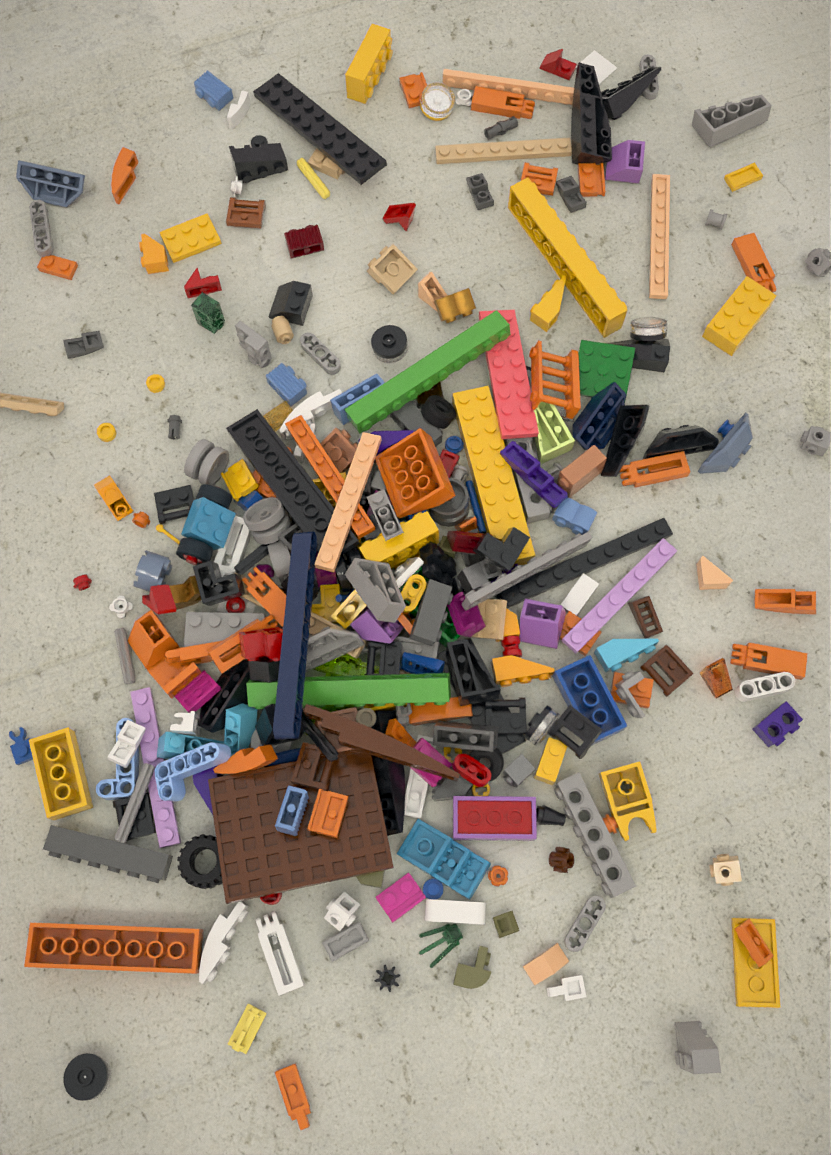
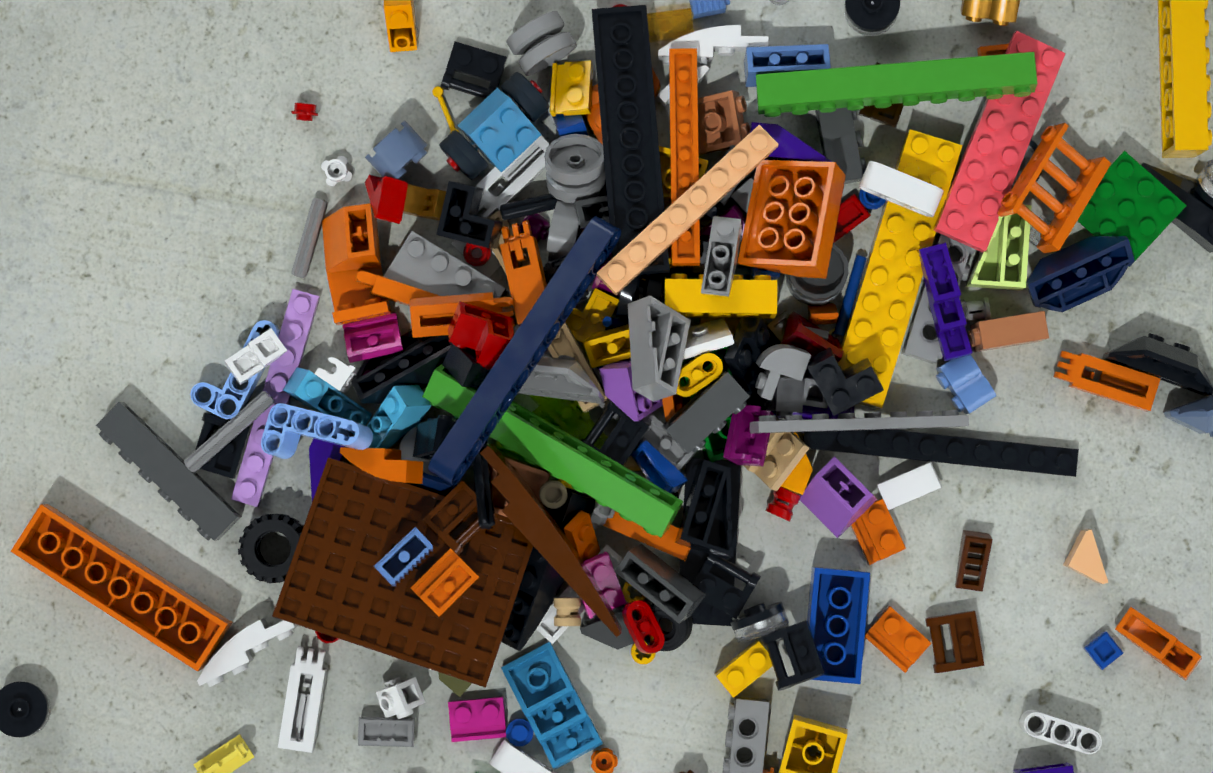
camera: 30 degrees right, 15 degrees up
(21, 749) = (130, 286): blue plate -> none
(60, 774) = (160, 345): yellow brick -> none
(141, 519) = (420, 68): orange plate -> none
(417, 789) = (567, 611): none -> tan wheel
(438, 411) = (881, 131): black tyre -> none
(457, 558) = (780, 360): none -> light grey brick
(460, 473) = (852, 243): light grey bush -> none
(468, 424) = (901, 189): none -> white beam
(494, 818) = (637, 696): red brick -> none
(515, 669) = (768, 531): light orange slope -> none
(518, 771) = (699, 657): flat silver brick -> none
(547, 310) = (1112, 78): yellow slope -> none
(549, 816) = (703, 729): black cone -> none
(618, 651) = (908, 584): medium azure slope -> none
(619, 595) = (957, 516): lavender plate -> none
(626, 432) = (1101, 312): black wedge -> none
(630, 679) = (898, 630): light grey bracket -> none
(717, 678) = (1009, 688): clear orange slope -> none
(756, 625) = (1103, 650): none -> blue tile
(777, 659) = (1097, 710): orange hinge -> none

